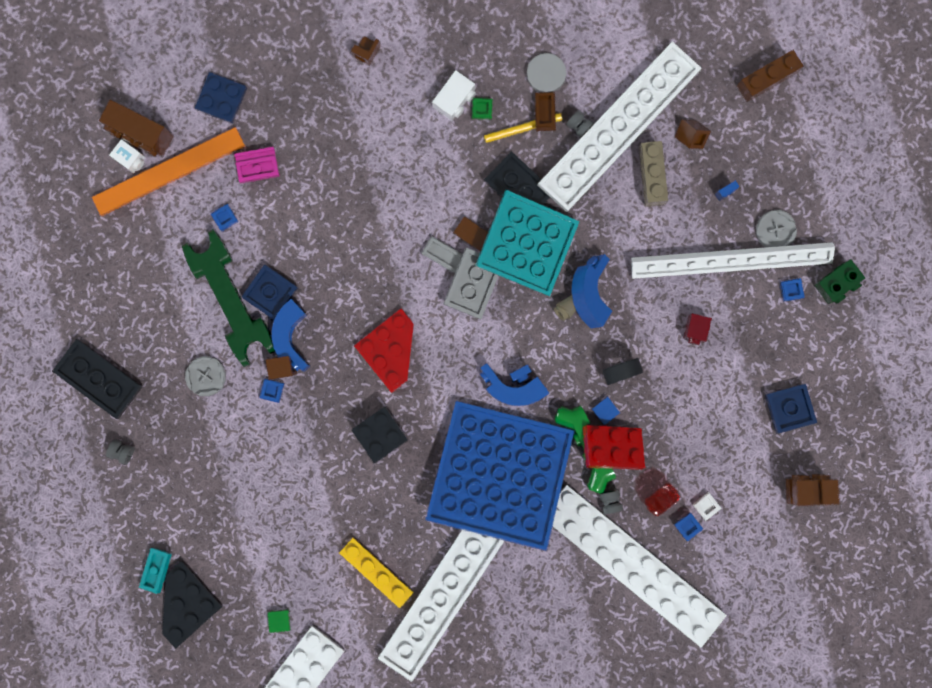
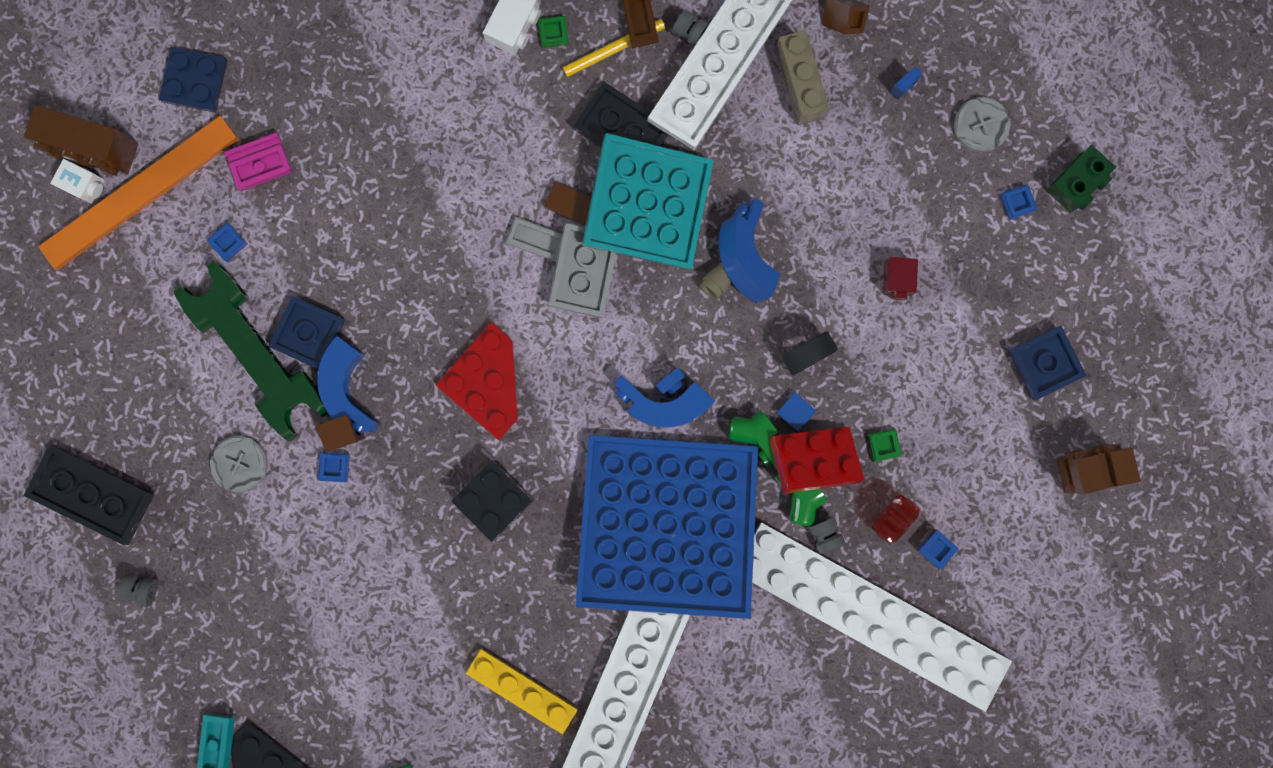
camera: 15 degrees left, 0 degrees up
(664, 446) = (884, 445): none -> green tile
(706, 506) = (957, 516): white tile -> none
(732, 260) = (930, 176): white plate -> none

